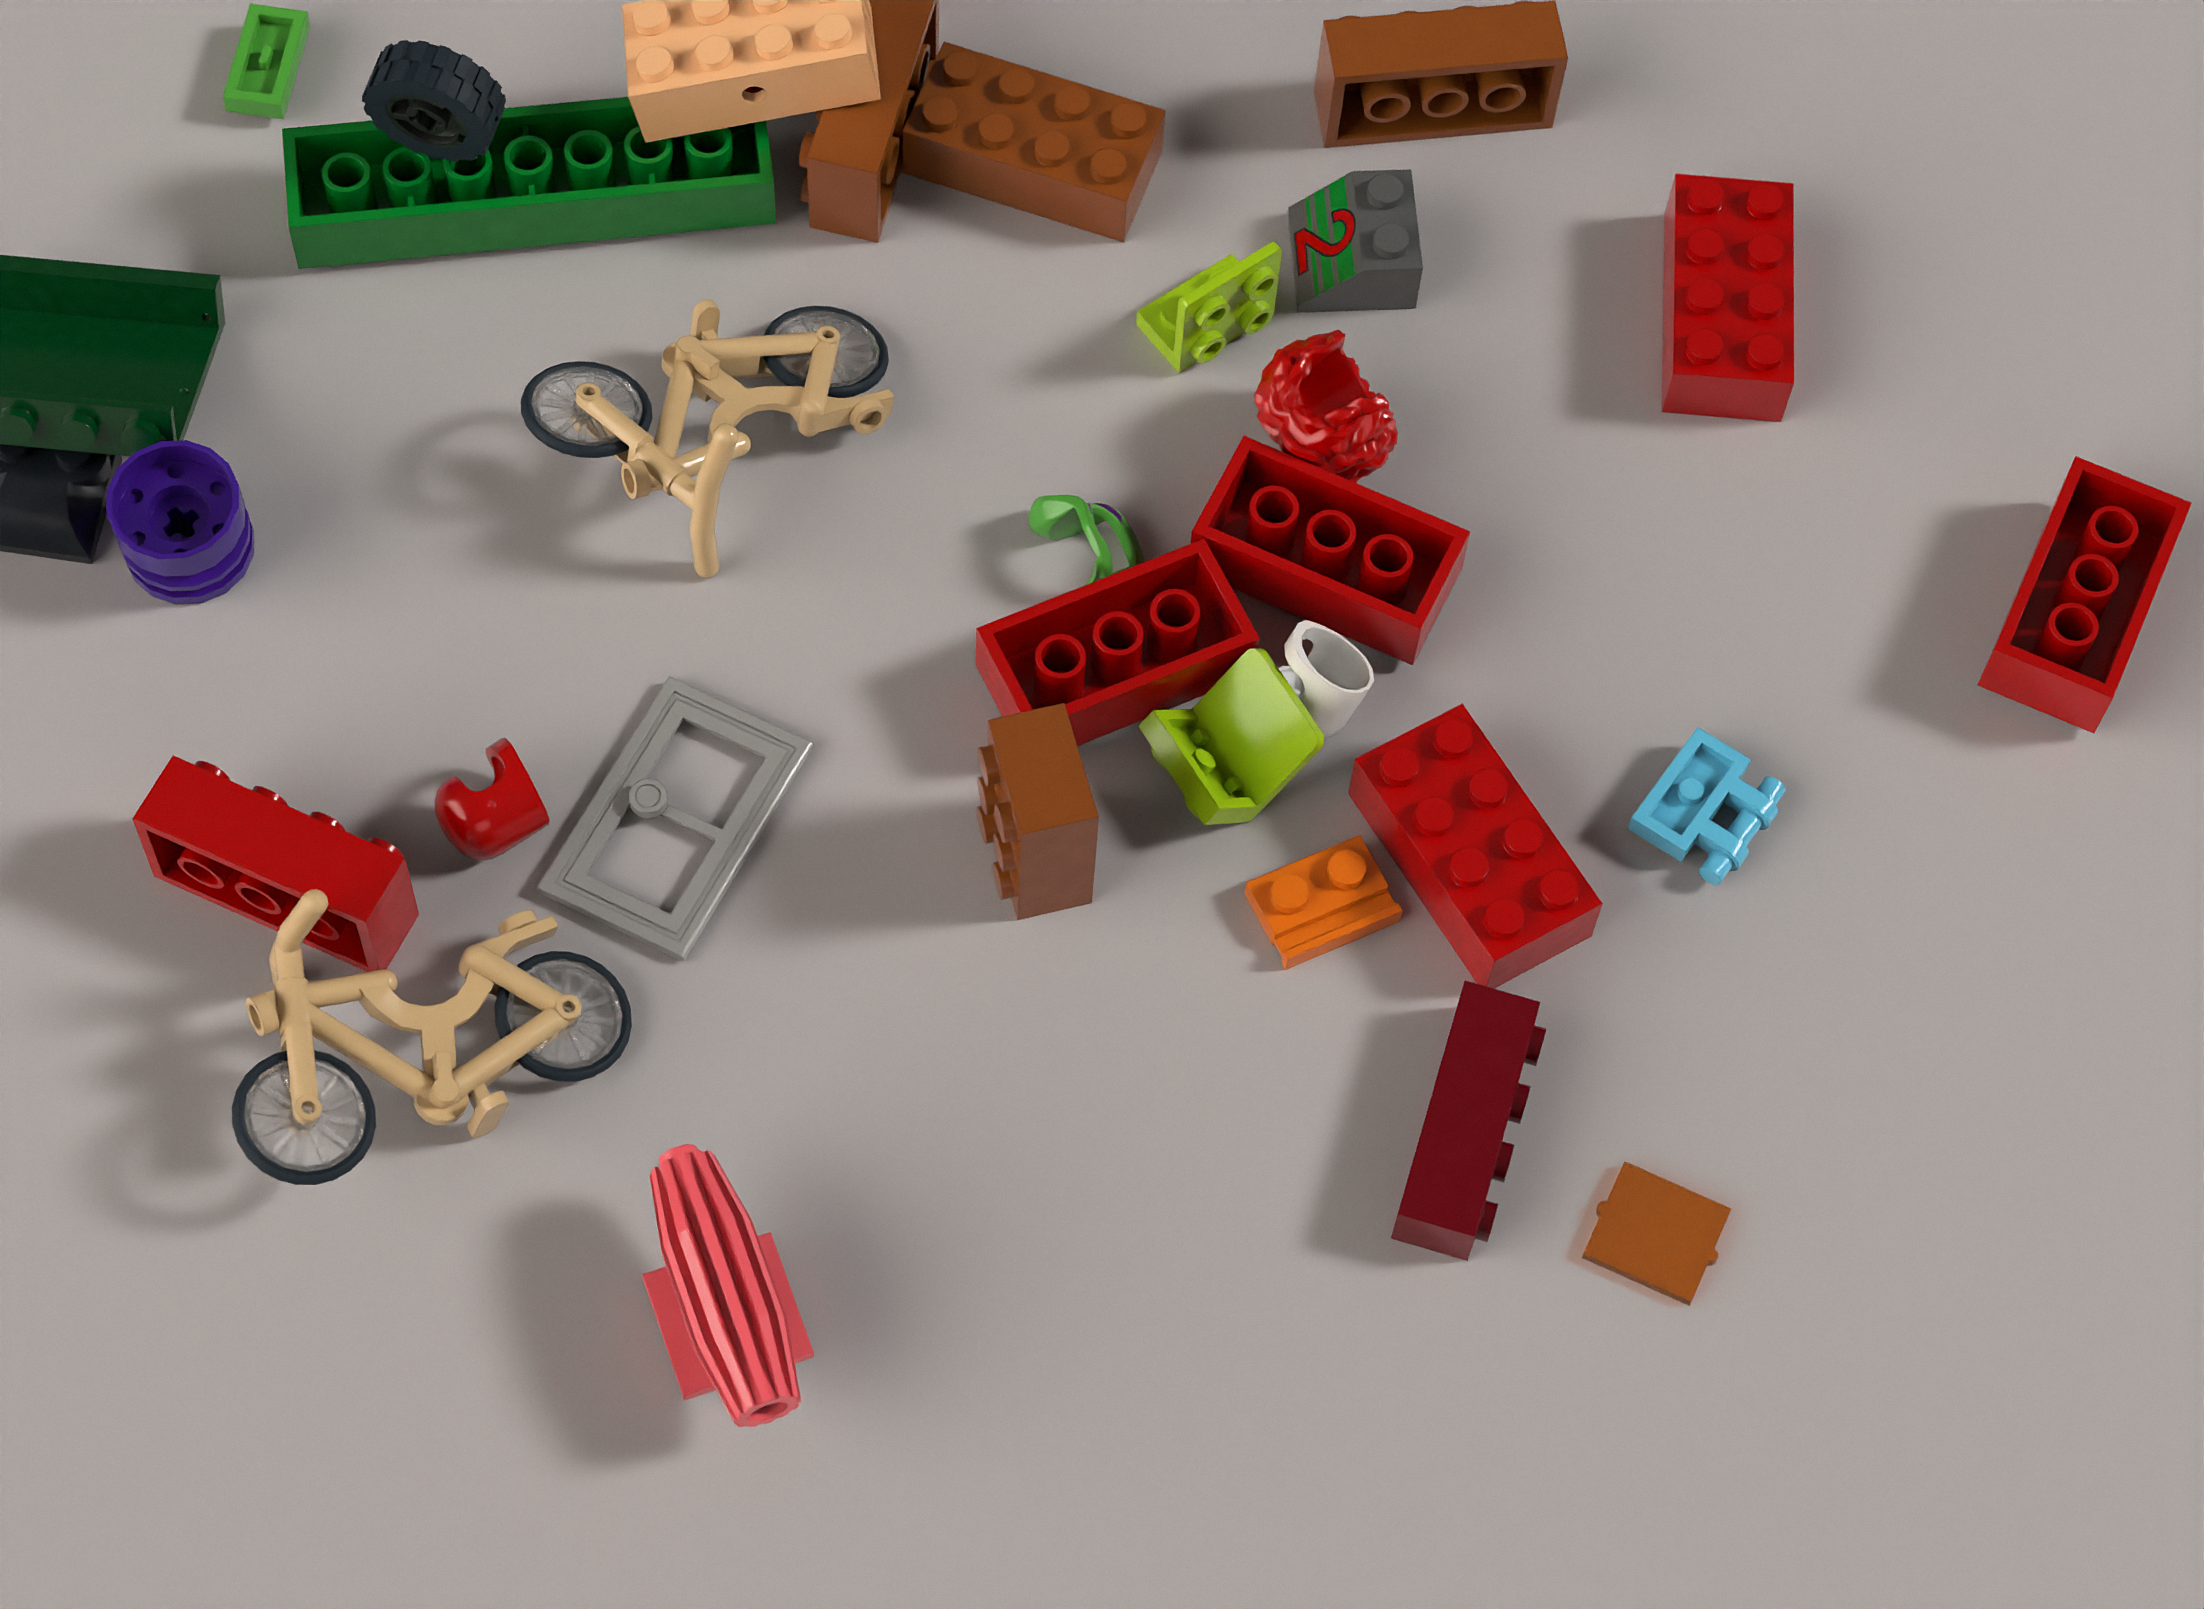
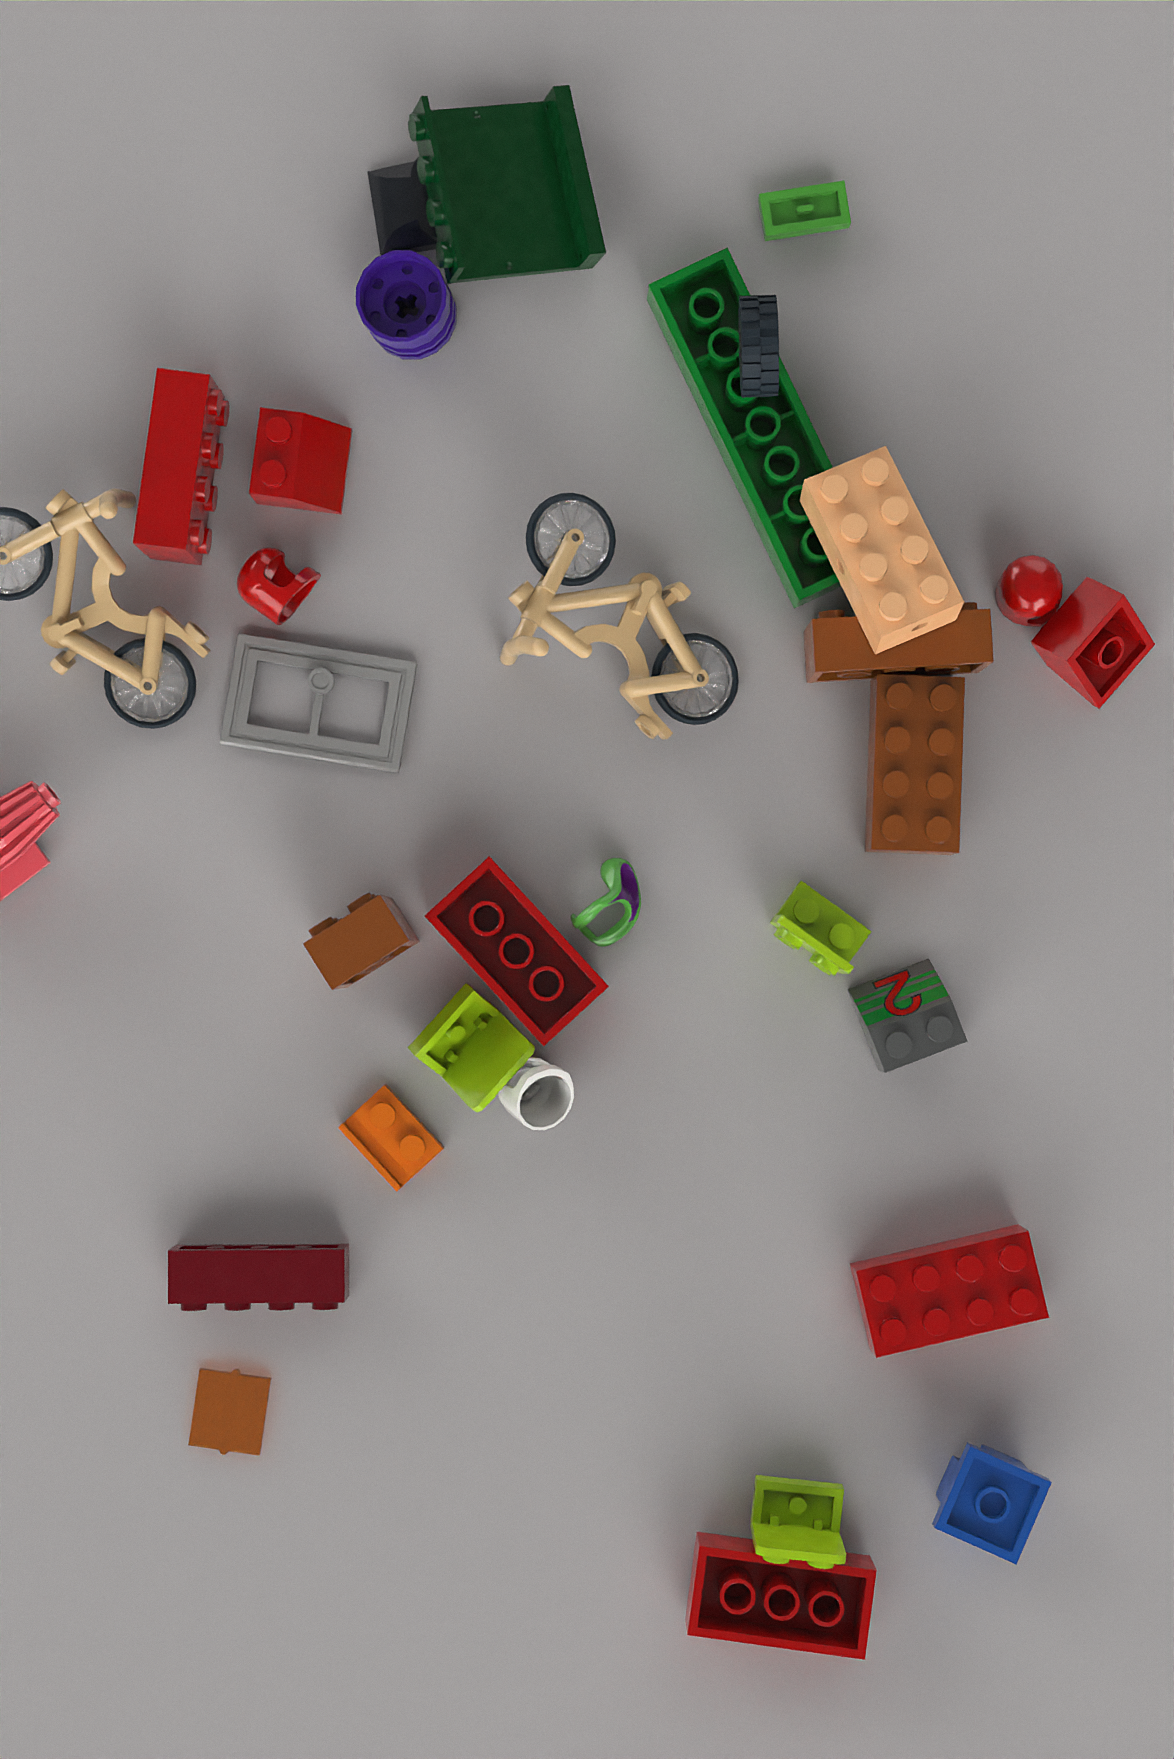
camera: 80 degrees right, 25 degrees up
(328, 736) = (300, 461): none -> red slope
(1324, 409) = (744, 1037): red hair -> none
(1331, 549) = (643, 1070): red brick -> none
(1439, 73) = (1065, 1038): dark orange brick -> none
(1474, 848) = (452, 1228): red brick -> none
(1690, 795) = (544, 1360): medium azure plate -> none
(1986, 547) = (797, 1521): none -> lime bracket
(2015, 325) = (990, 1501): none -> blue panel

